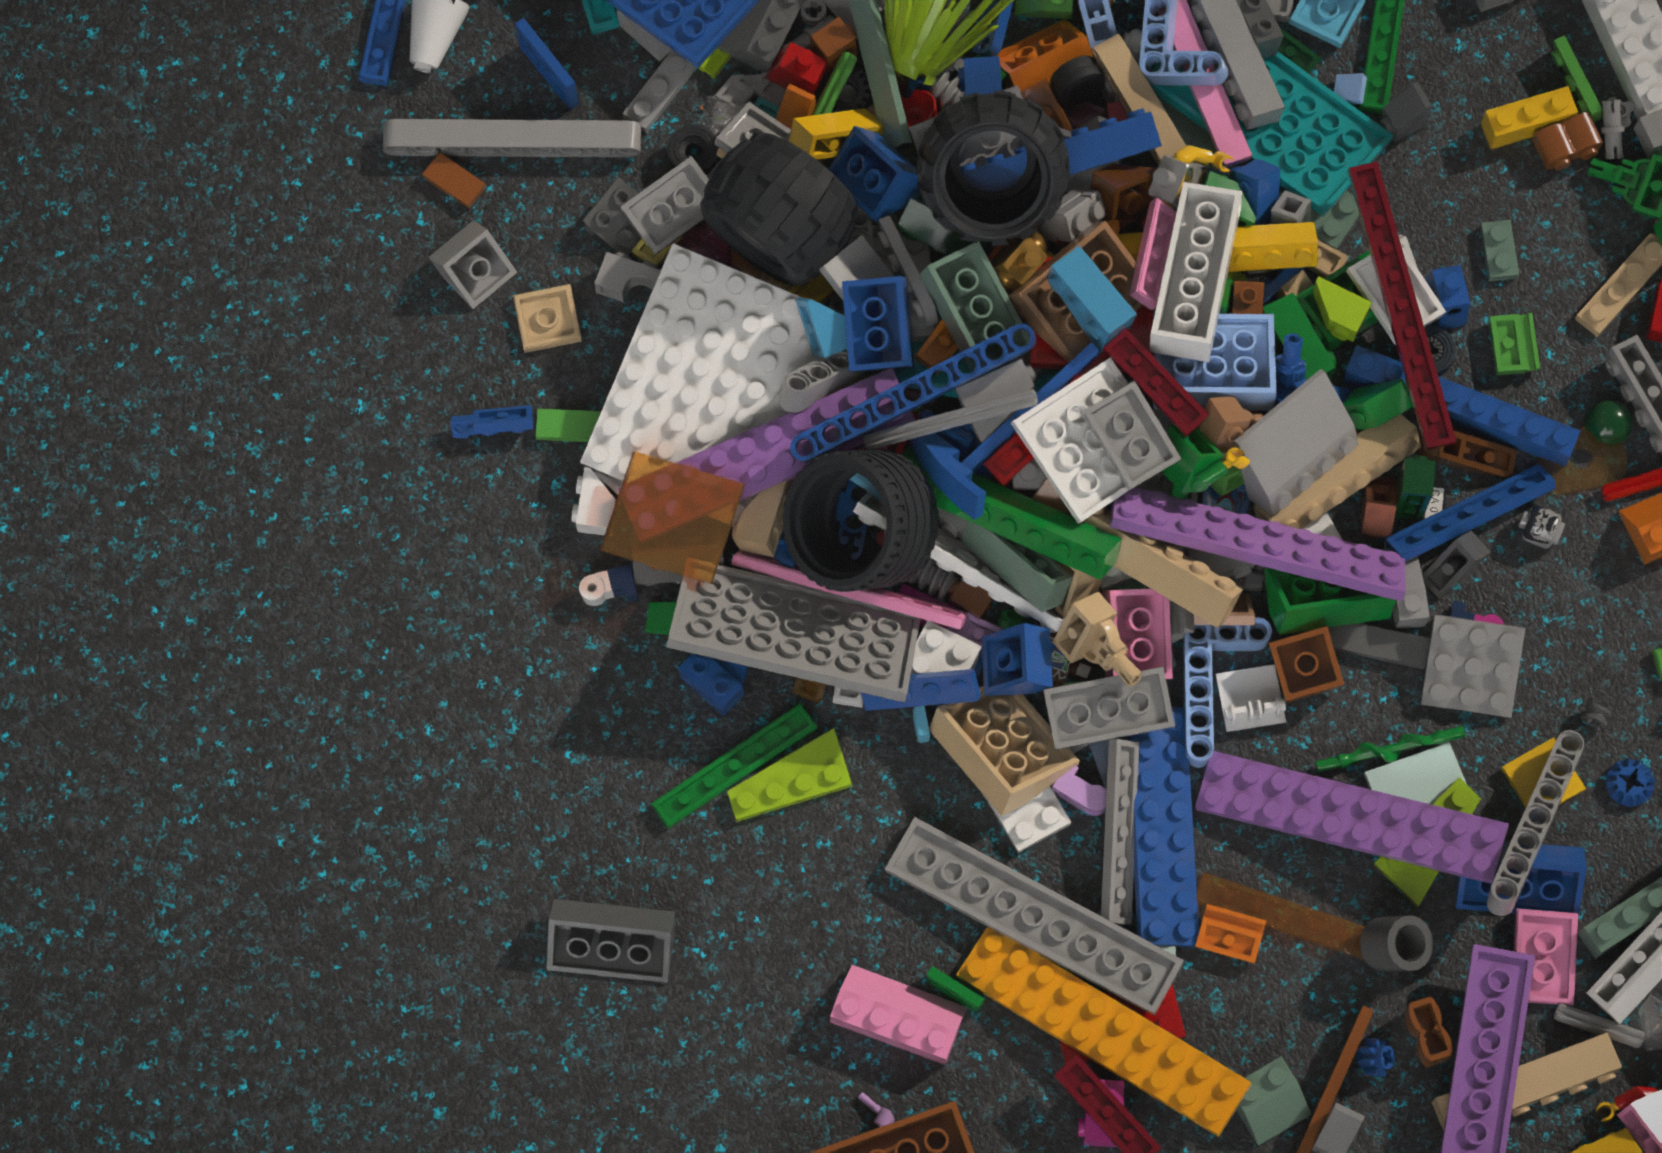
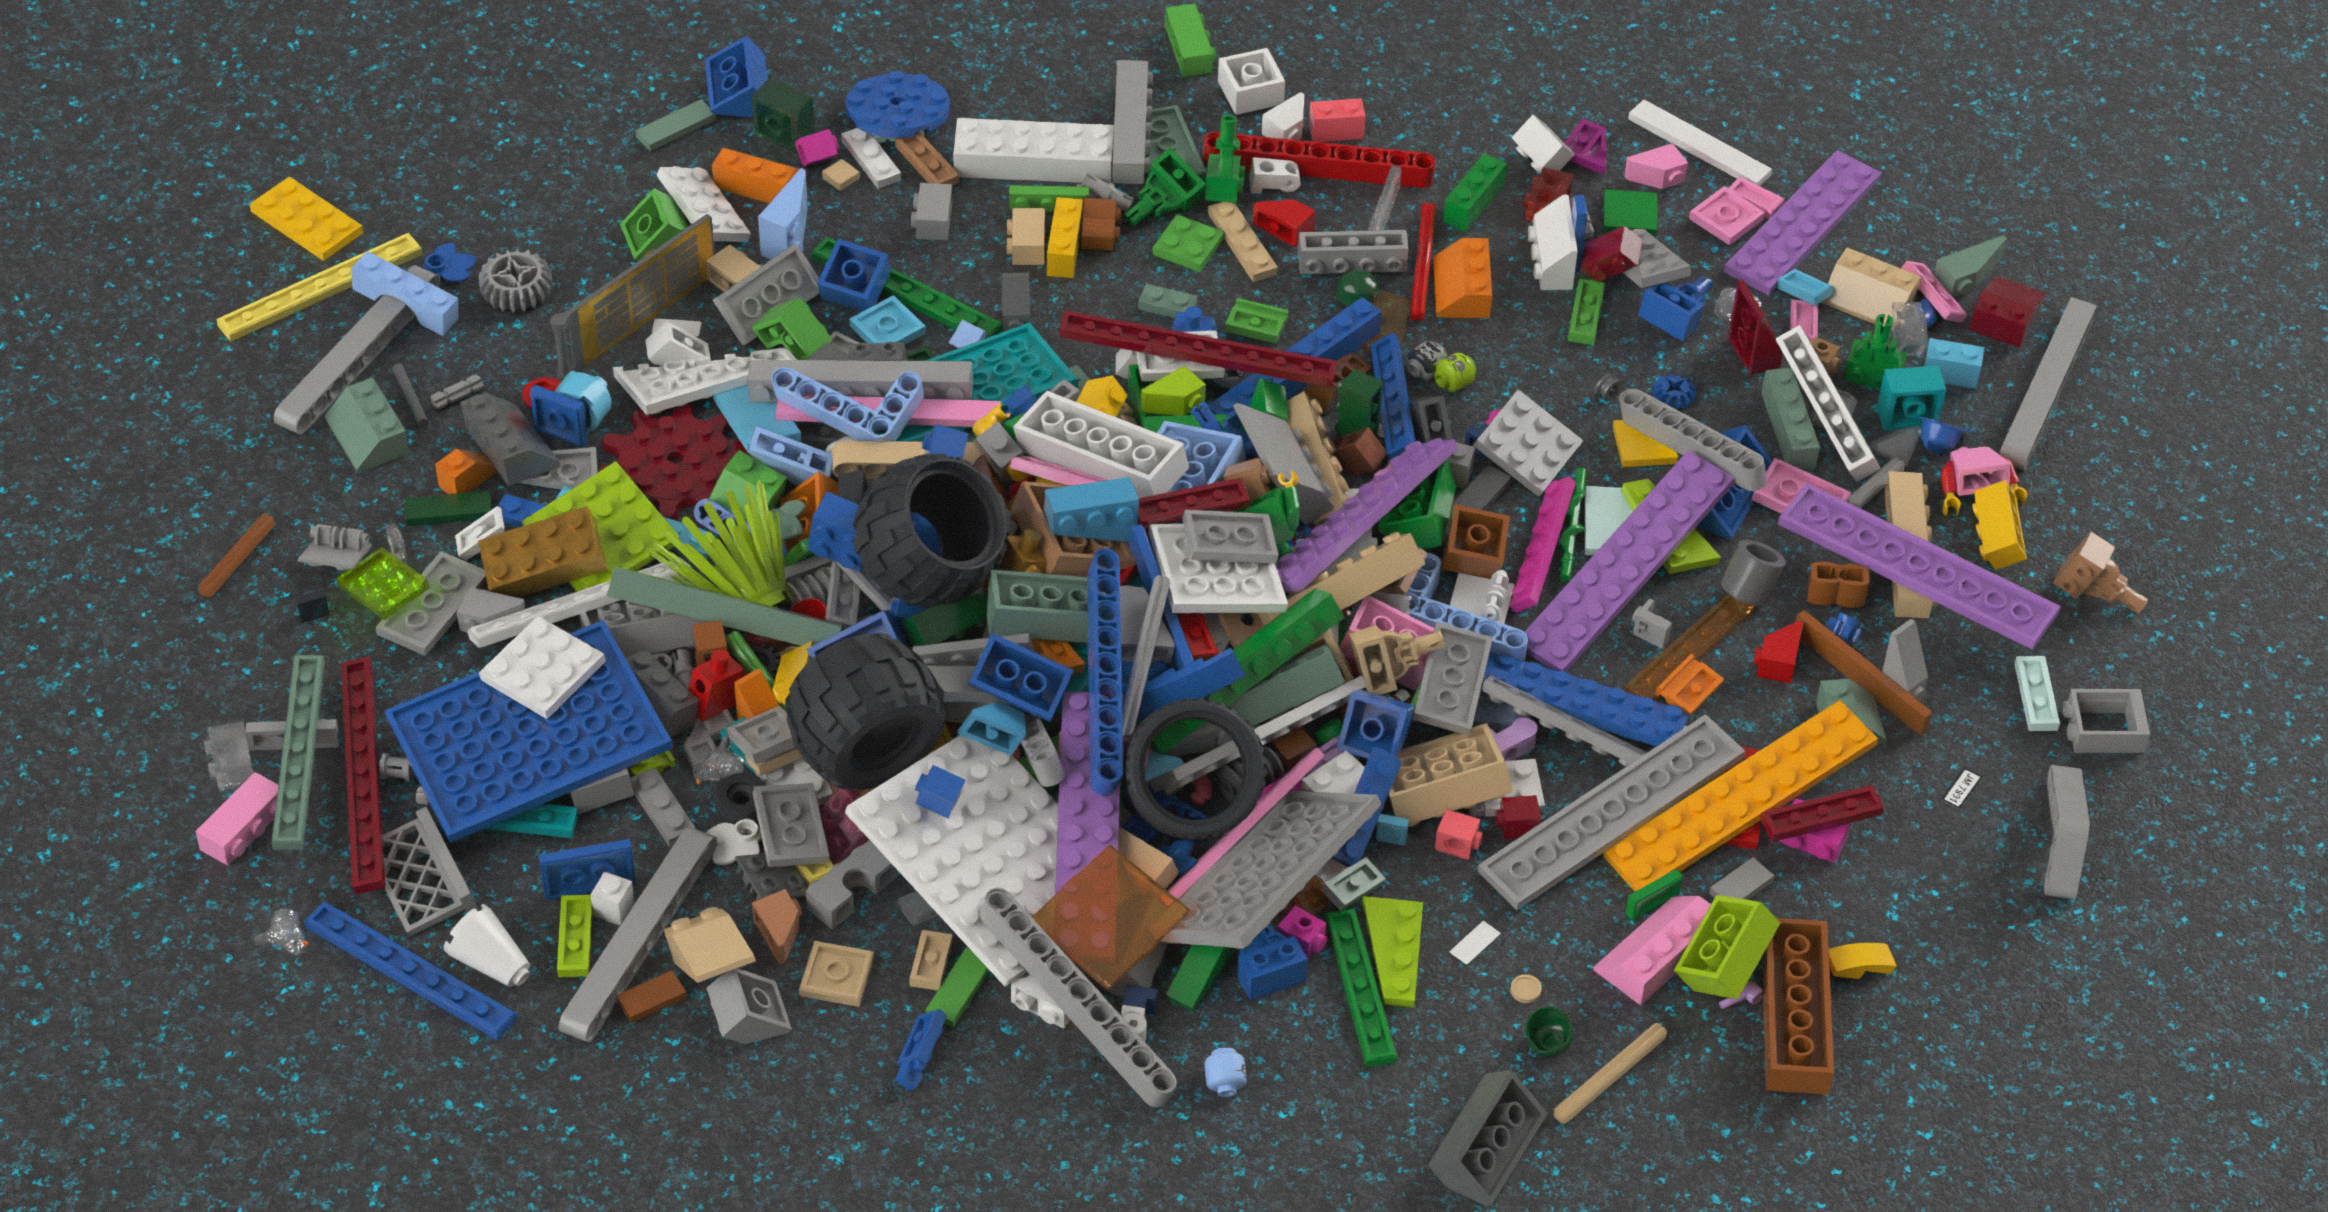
camera: 70 degrees left, 25 degrees down
(486, 88) = (574, 936): none -> lime plate
(505, 201) = (707, 944): none -> tan slope
(534, 99) = (612, 898): none -> white brick
(571, 246) = (778, 922): none -> nougat slope
(580, 687) = (1225, 1071): none -> light blue head
(585, 512) = (1078, 1010): none -> light grey beam
(588, 389) = (930, 960): none -> tan plate
(643, 168) = (735, 840): none -> white plate
(724, 312) = (939, 791): none -> blue brick
(735, 1022) = (1610, 1073): none -> tan axle
(748, 951) = (1549, 1031): none -> dark green hair
(764, 692) = (1306, 929): none -> dark pink brick
(800, 913) = (1526, 988): none -> tan piece
(834, 848) = (1475, 942): none -> white sticker
(840, 714) = (1353, 884): none -> sand green plate
(901, 1076) = (1727, 946): none -> lime brick
(943, 786) = (1458, 834): none -> coral brick
(990, 832) = (1517, 815): none -> dark red brick
(1011, 1066) = (1744, 881): none -> light grey tile
(1025, 31) = (789, 523): none -> sand green plate
(1291, 875) = (1650, 626): none -> light grey bracket
(1315, 1005) = (1779, 653): none -> red slope
(1348, 728) = (1542, 544): none -> dark pink plate
(1514, 81) = (1027, 236): none -> tan brick
(1536, 559) = (1455, 372): none -> lime head
(1592, 235) = (1188, 243): none -> bright green plate

